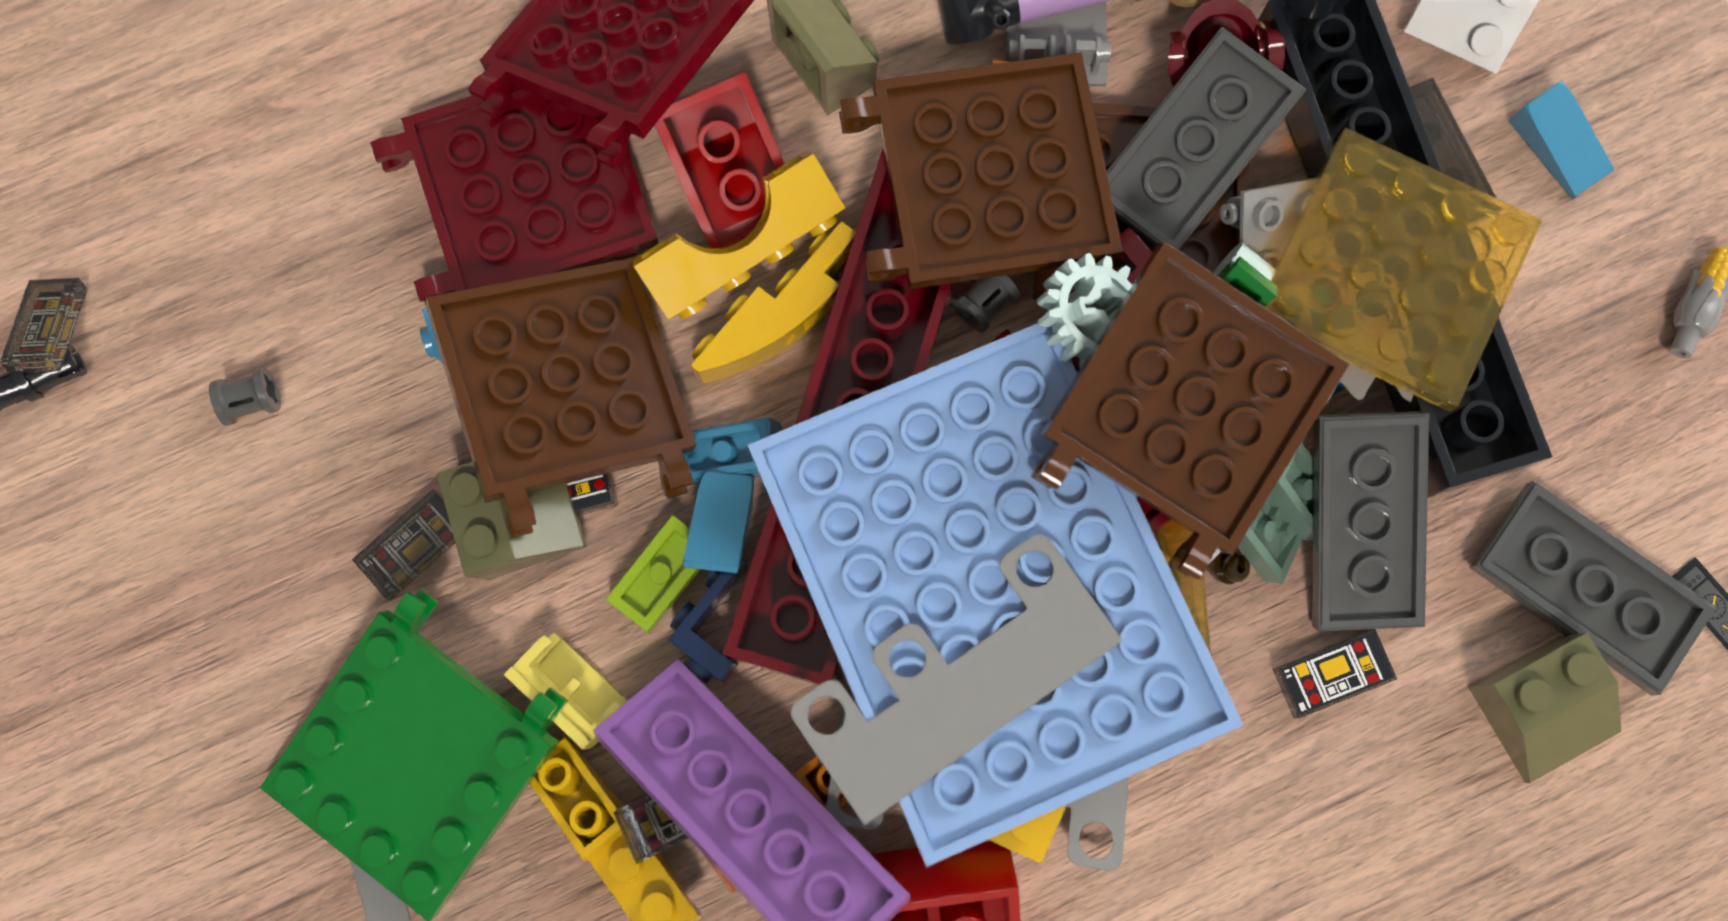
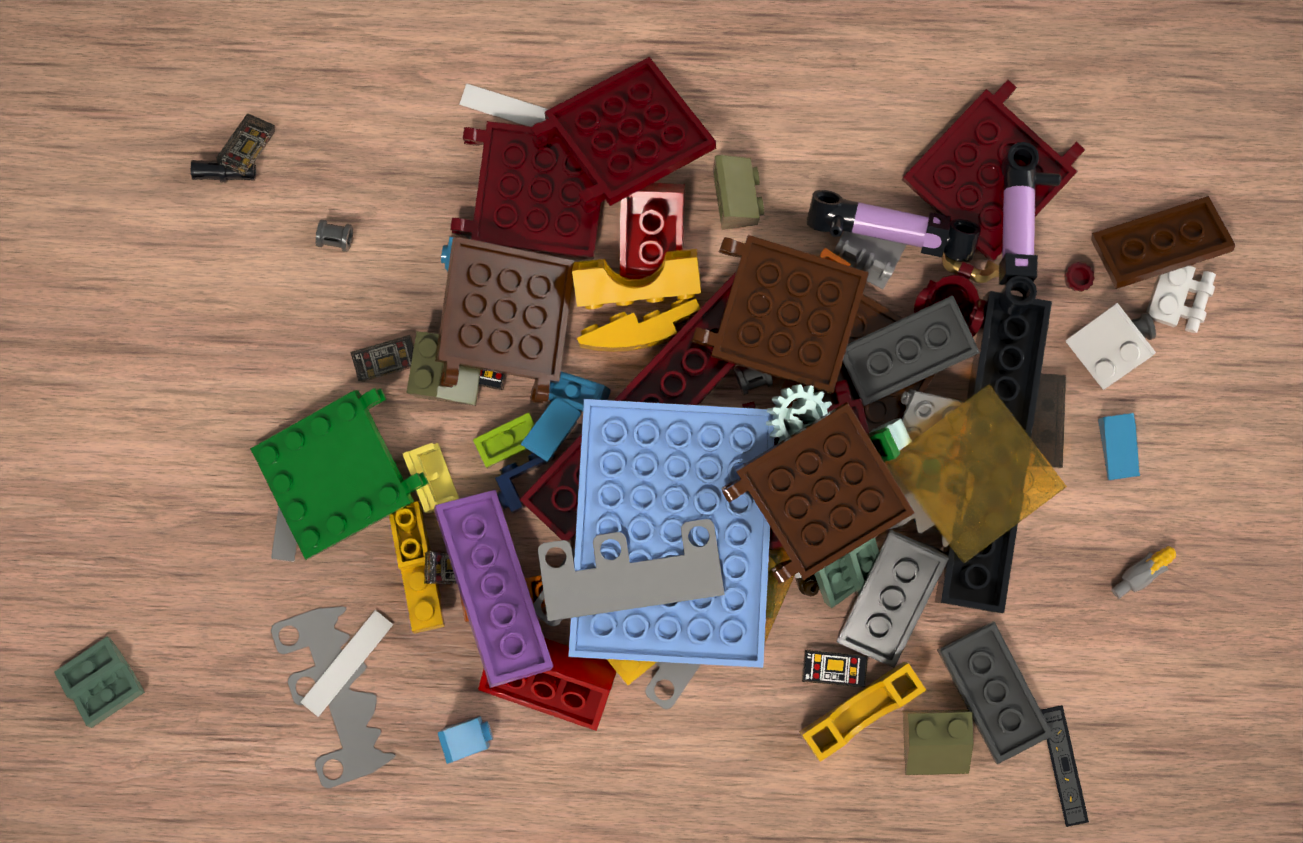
camera: 25 degrees right, 5 degrees up
(410, 93) = (502, 106): none -> white sticker
(1393, 758) = (860, 710): none -> yellow arch

